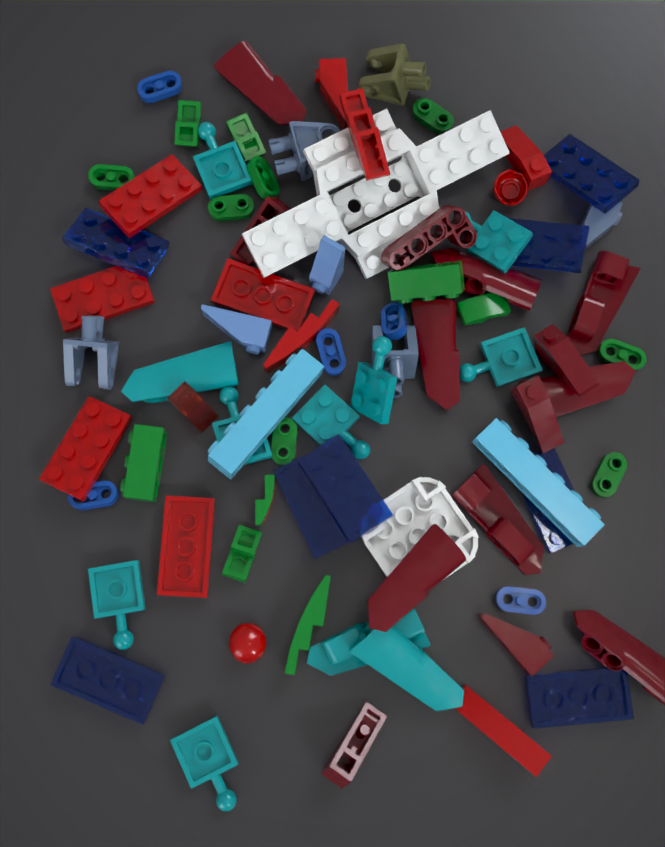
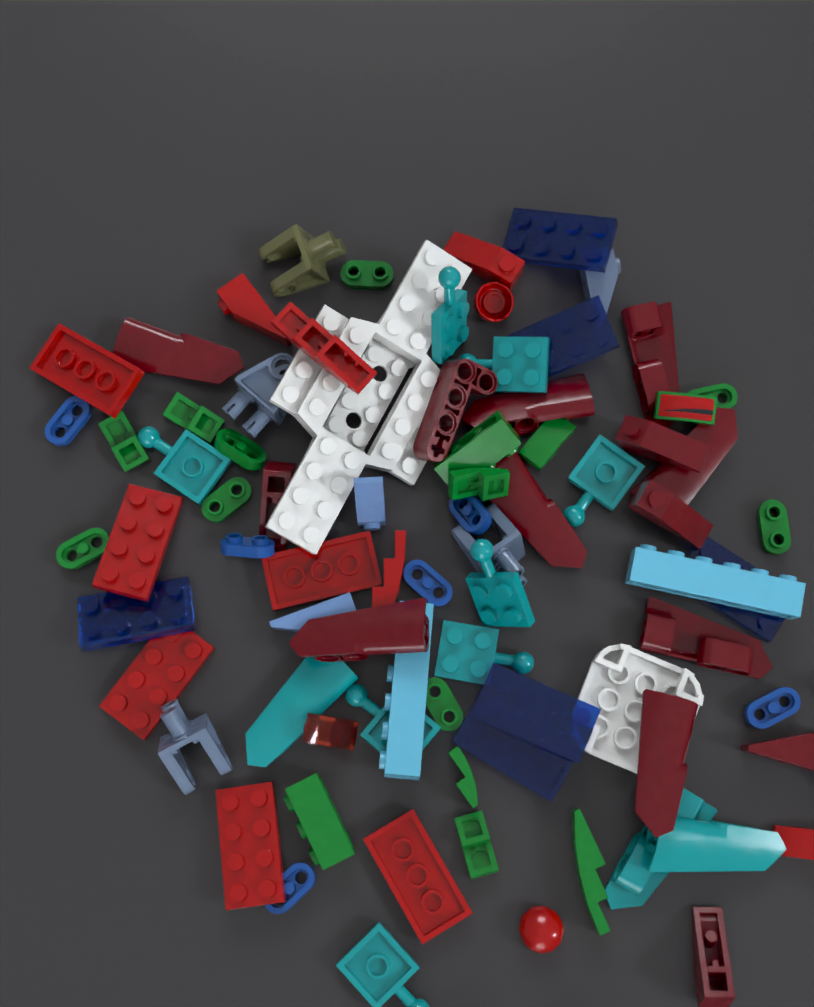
camera: 30 degrees left, 0 degrees up
(194, 59) = (87, 370): none -> red plate
(226, 248) = (255, 547): none -> blue plate
(259, 351) = (365, 632): none -> dark red panel
(415, 303) = (484, 482): none -> green slope
(469, 174) = (450, 318): none -> teal plate
(600, 346) = (685, 407): none -> slope

